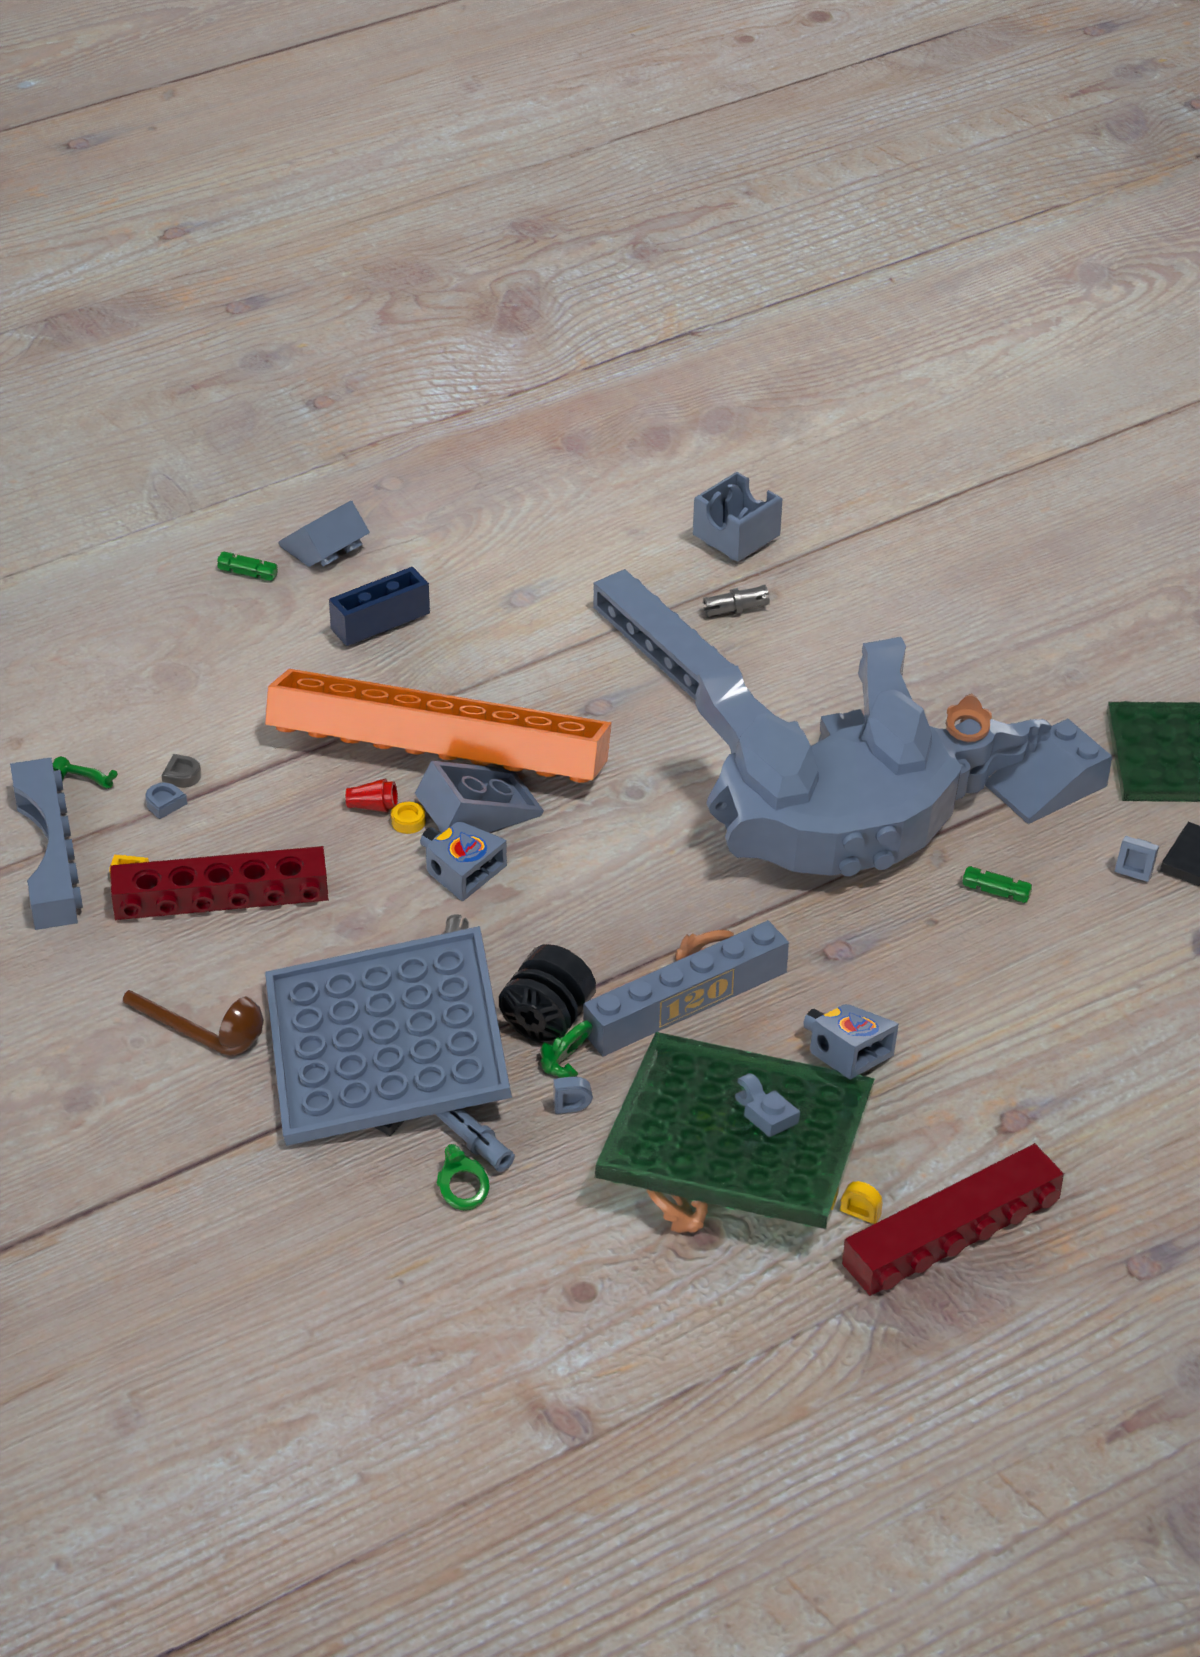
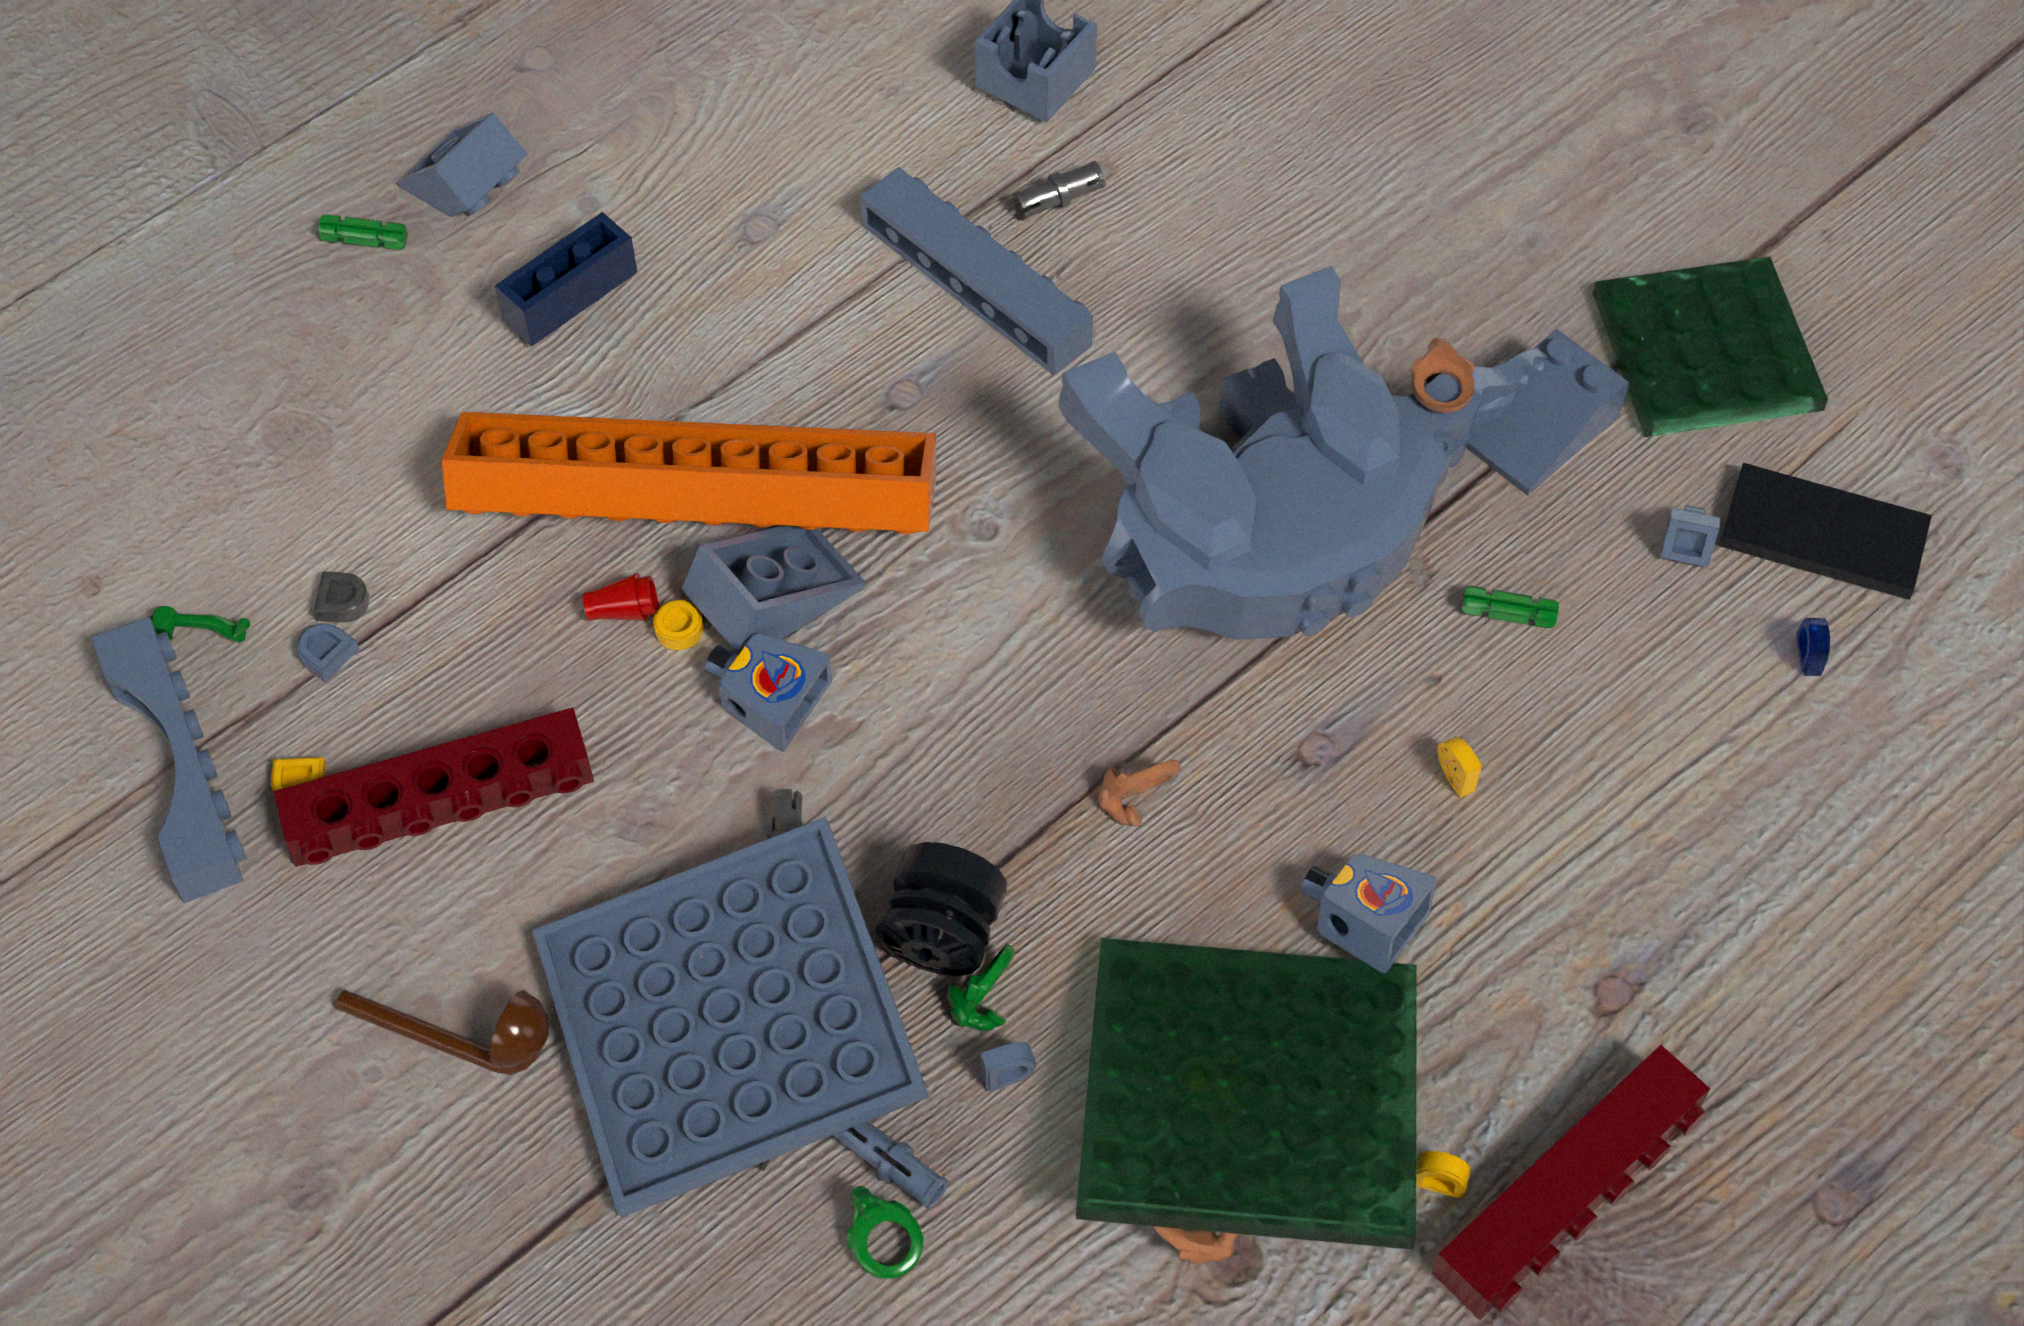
camera: 10 degrees left, 15 degrees up
(686, 987) = (1127, 857): sand blue brick -> none
(767, 1111) = (1290, 1061): sand blue plate -> none
(935, 969) = (1459, 765): none -> yellow tile

